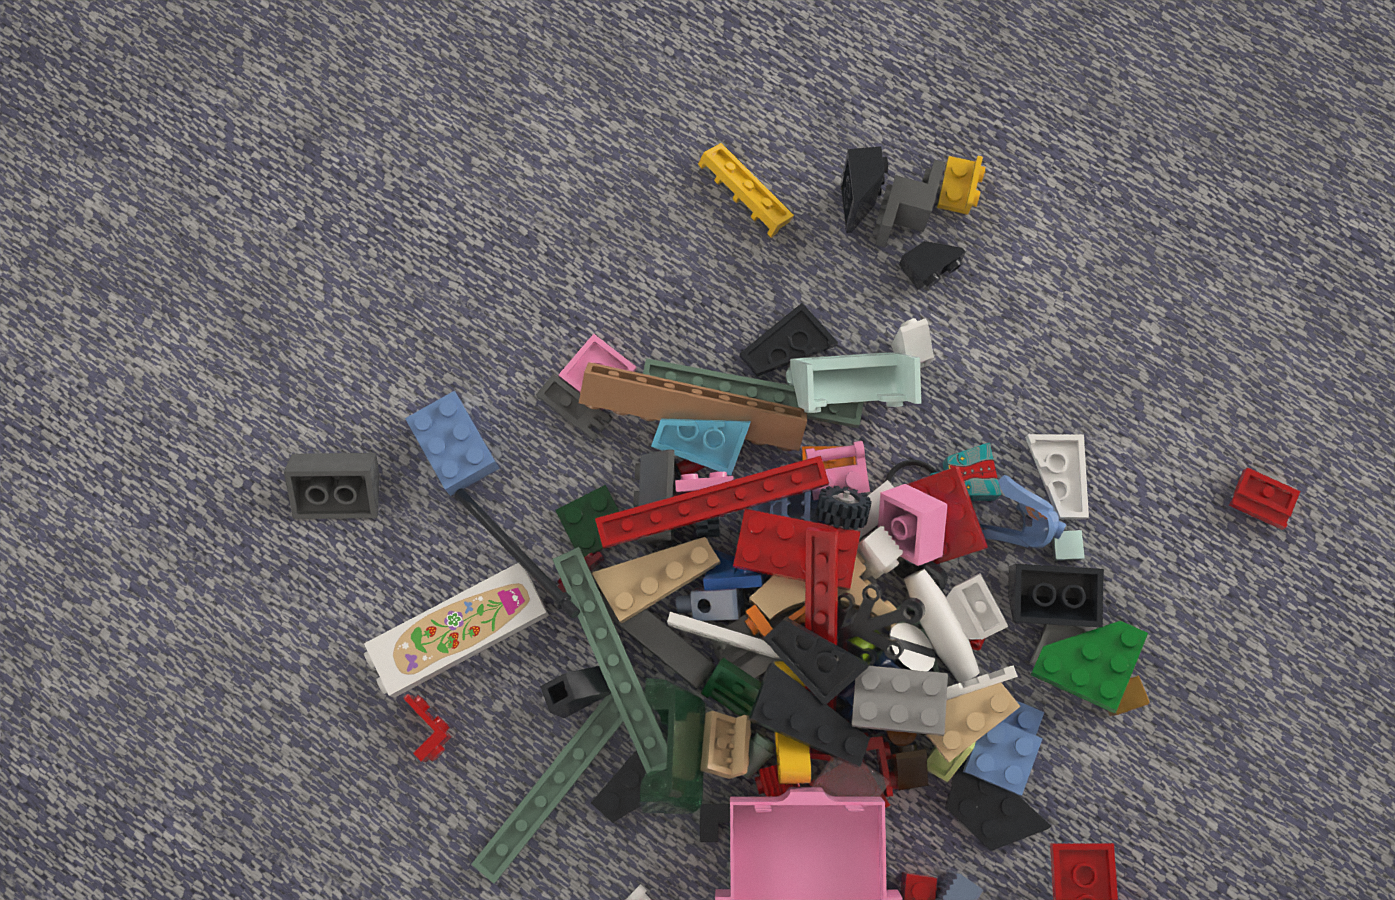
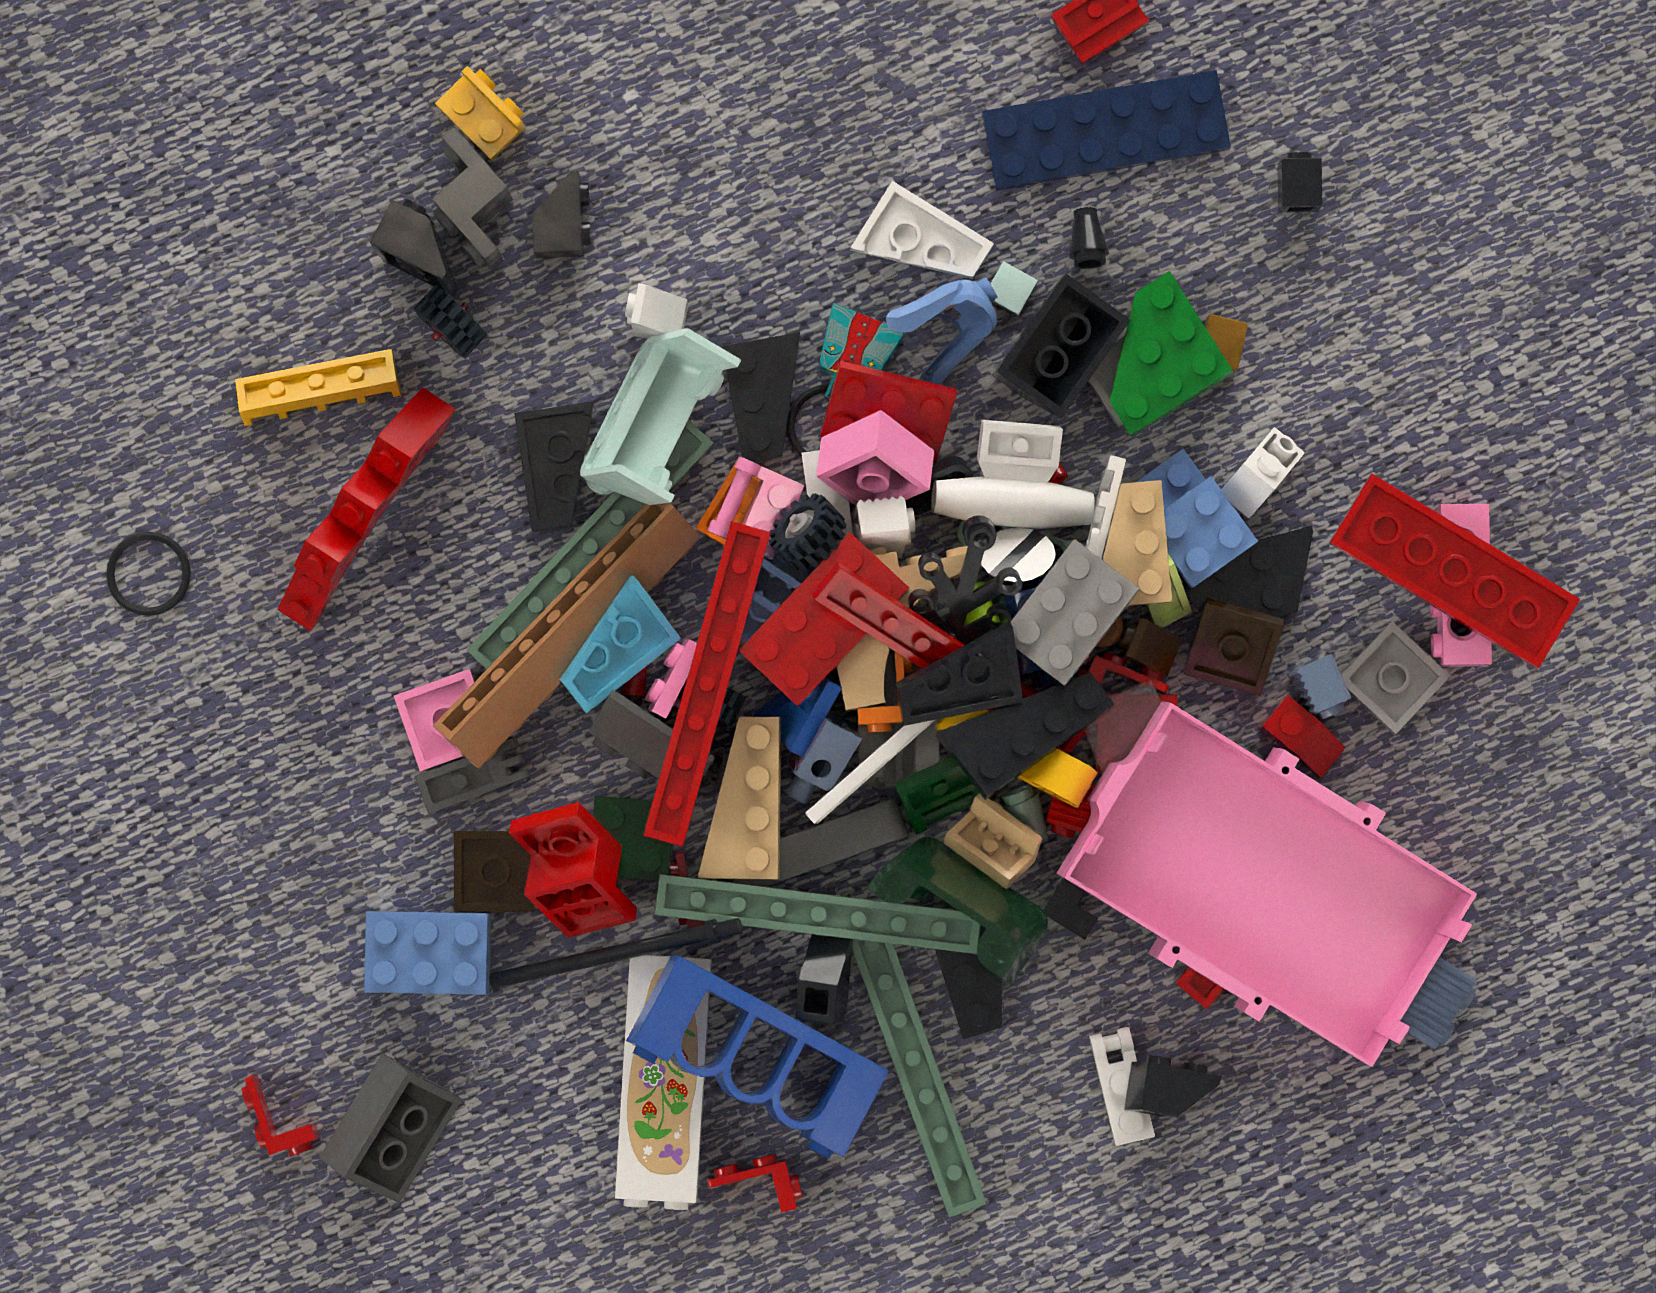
camera: 60 degrees left, 10 degrees up
(292, 414) = (294, 1141): none -> red bracket
(514, 749) = (841, 1105): none -> blue fence
(525, 453) = (490, 872): none -> dark brown plate
(551, 495) = (573, 870): none -> red bracket
(581, 140) = (186, 572): none -> black tyre
(694, 242) = (361, 504): none -> red arch
(831, 234) = (450, 321): none -> black wheel
(908, 435) = (762, 393): none -> black wing
(944, 822) = (1233, 646): none -> dark brown plate
(1063, 772) = (1262, 472): none -> white slope
(1128, 574) = (1087, 242): none -> black cone
(1202, 545) = (1106, 130): none -> dark blue plate
(1254, 683) = (1299, 183): none -> black brick

